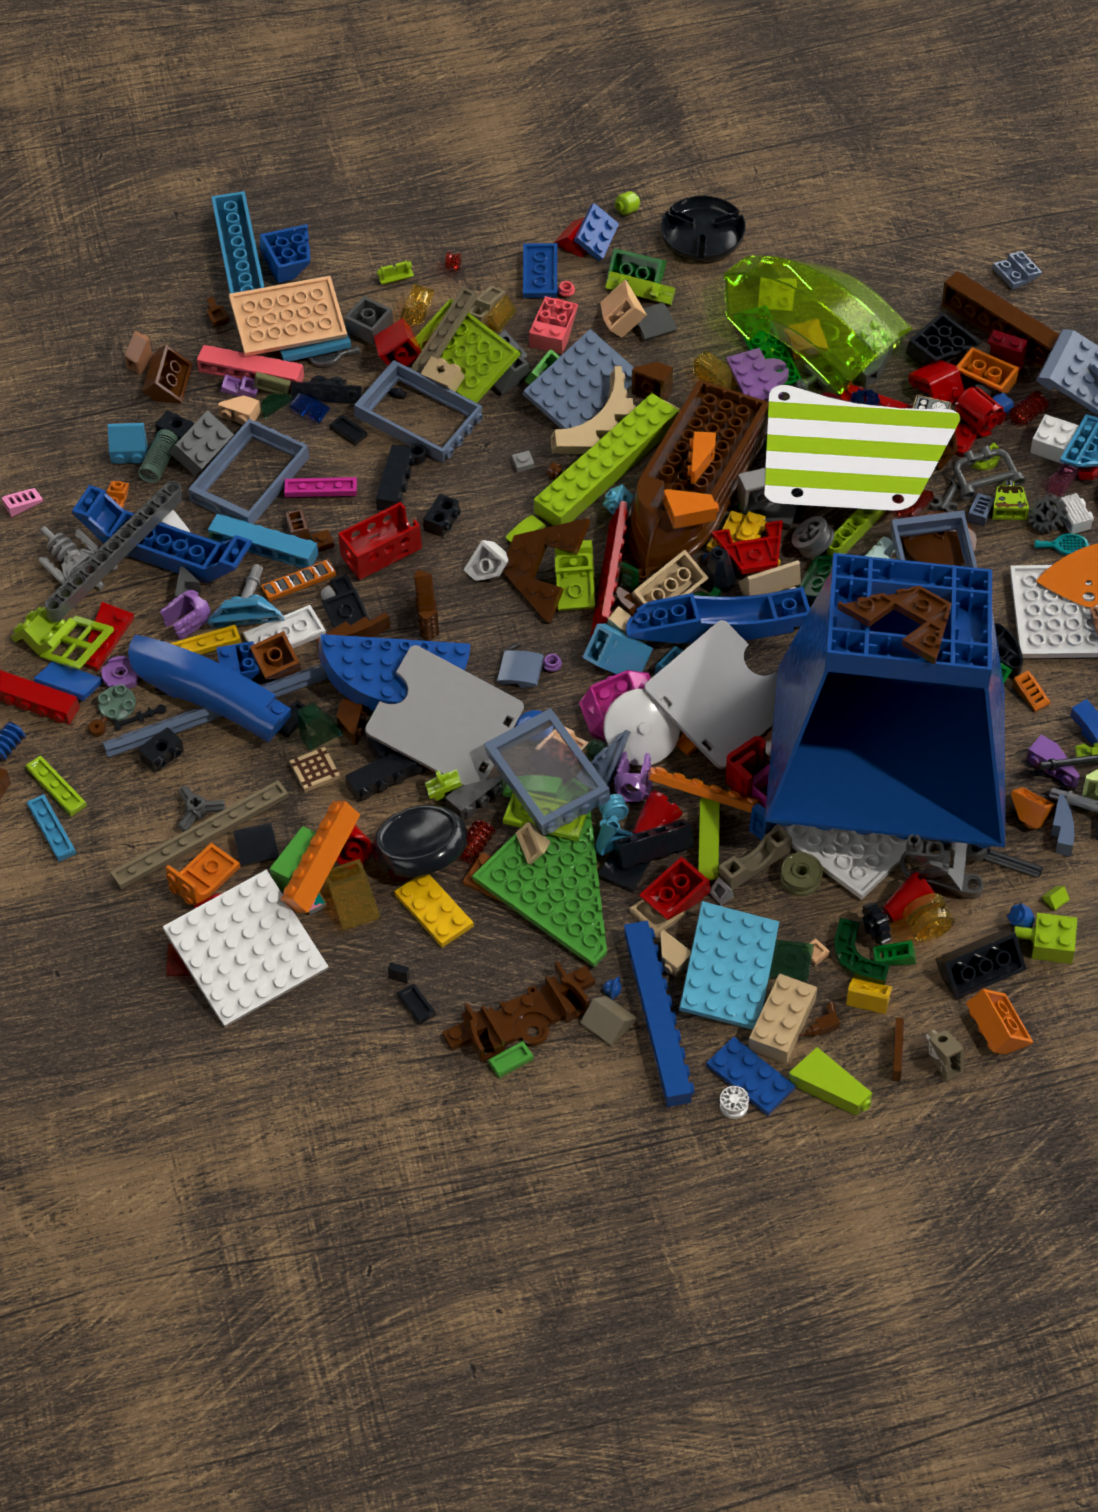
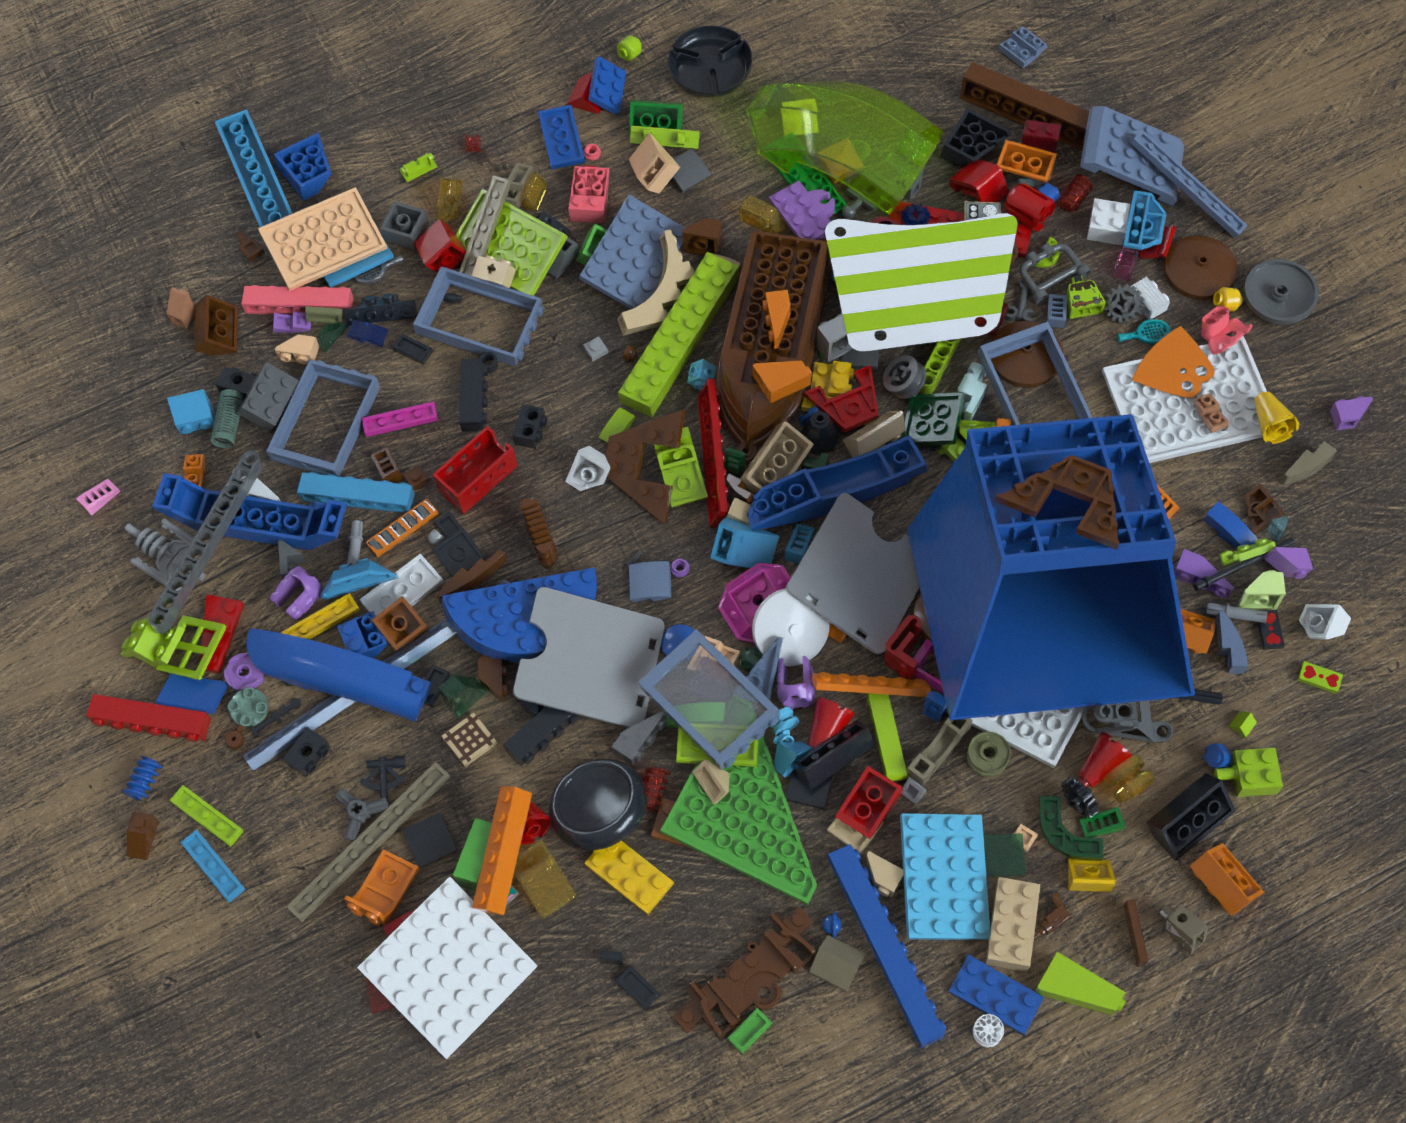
camera: 10 degrees left, 10 degrees up
(228, 775) = (382, 766): none -> black piece
(443, 783) = (605, 731): lime hips -> none

